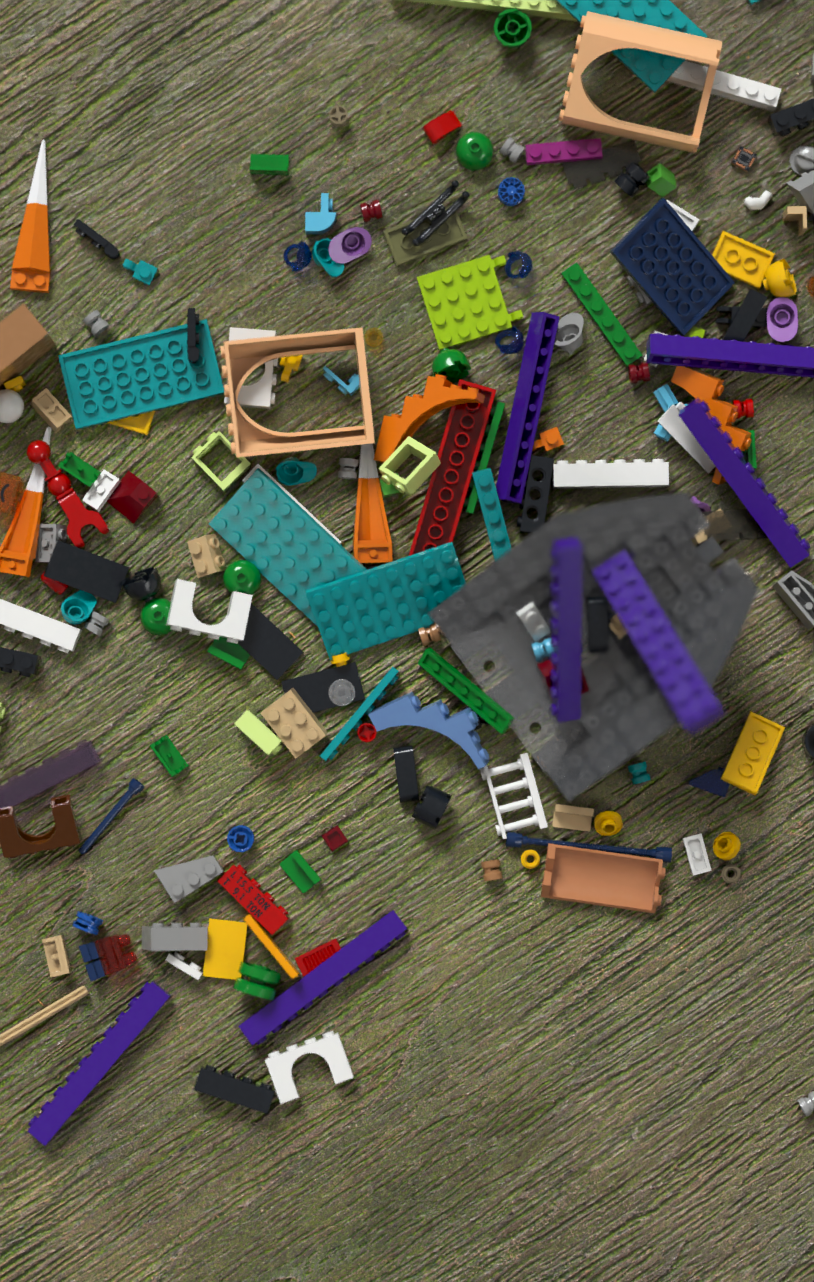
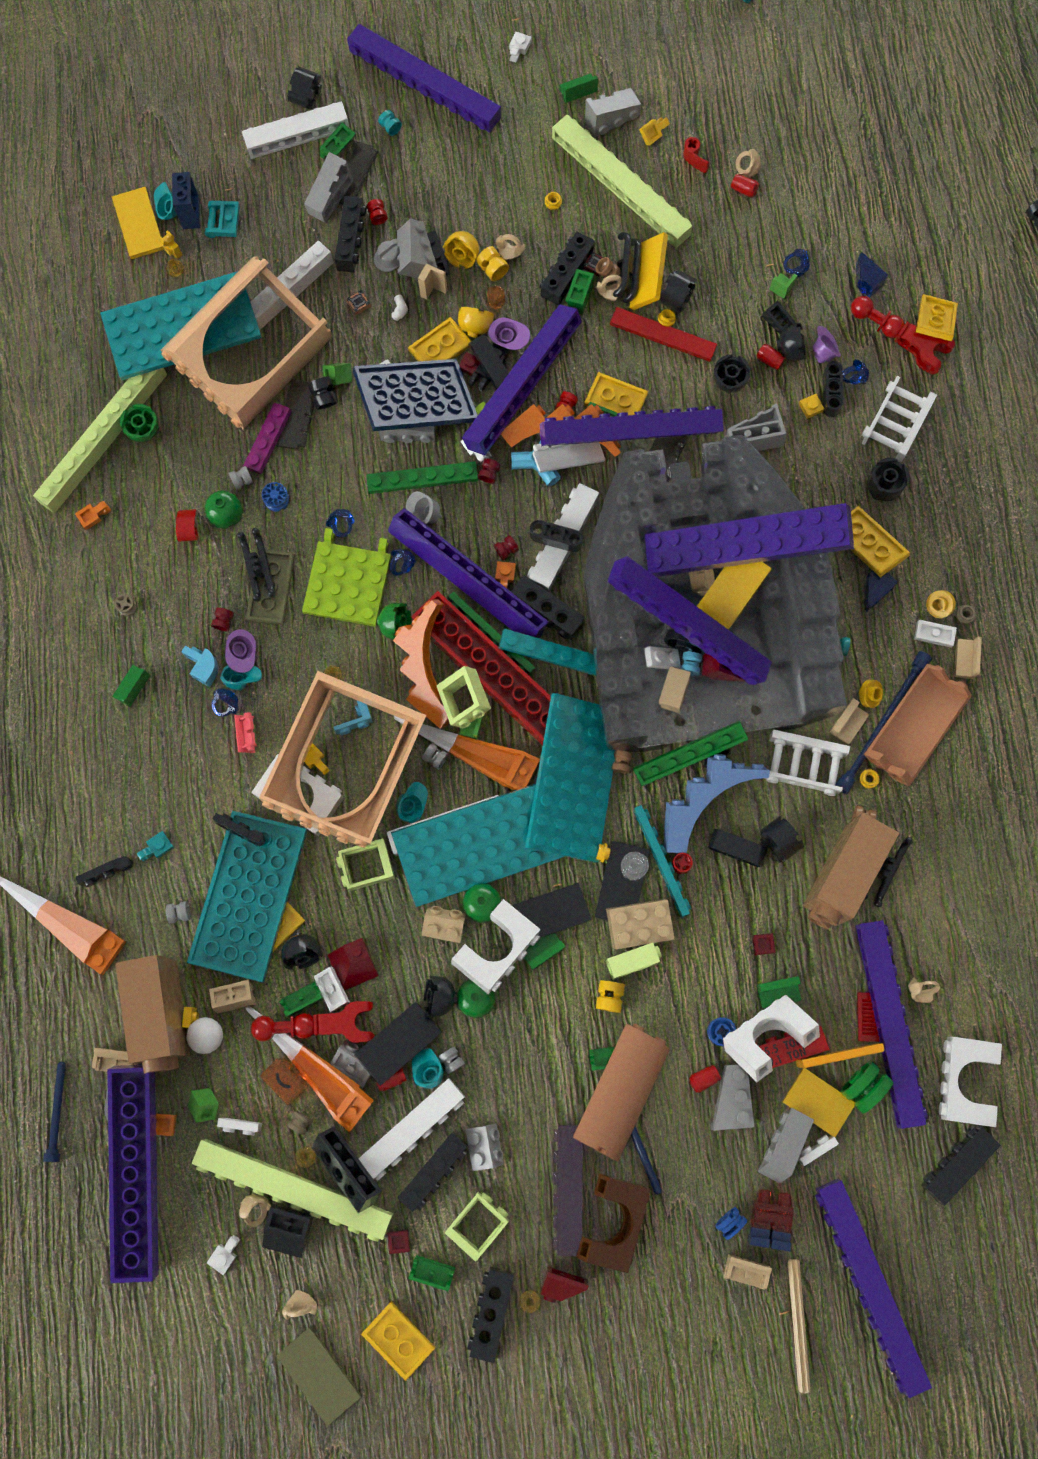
camera: 55 degrees left, 10 degrees down
(41, 689) = (484, 1147): none -> light grey bracket
(119, 446) = (300, 951): none -> black cylinder
(145, 779) = (622, 1092): none -> nougat cylinder
(193, 843) = (704, 1079): none -> red piece
(213, 732) = (613, 1003): none -> yellow wheel
(279, 290) = (244, 733): none -> coral hinge
(279, 880) = (780, 1015): none -> white arch
(360, 990) = (920, 995): none -> tan piece
(403, 34) = (90, 515): none -> orange plate
(429, 877) = (849, 871): none -> medium nougat brick
(455, 910) = (888, 871): none -> black piece
(511, 647) = (674, 689): none -> tan hinge
(574, 428) = (504, 548): none -> dark red wheel
(602, 478) = (562, 542): none -> black beam
(613, 652) = (733, 591): none -> yellow tile
(688, 893) = (967, 658): none -> tan panel
(736, 296) = (469, 364): none -> dark red plate
(775, 451) = (616, 395): none -> yellow tile

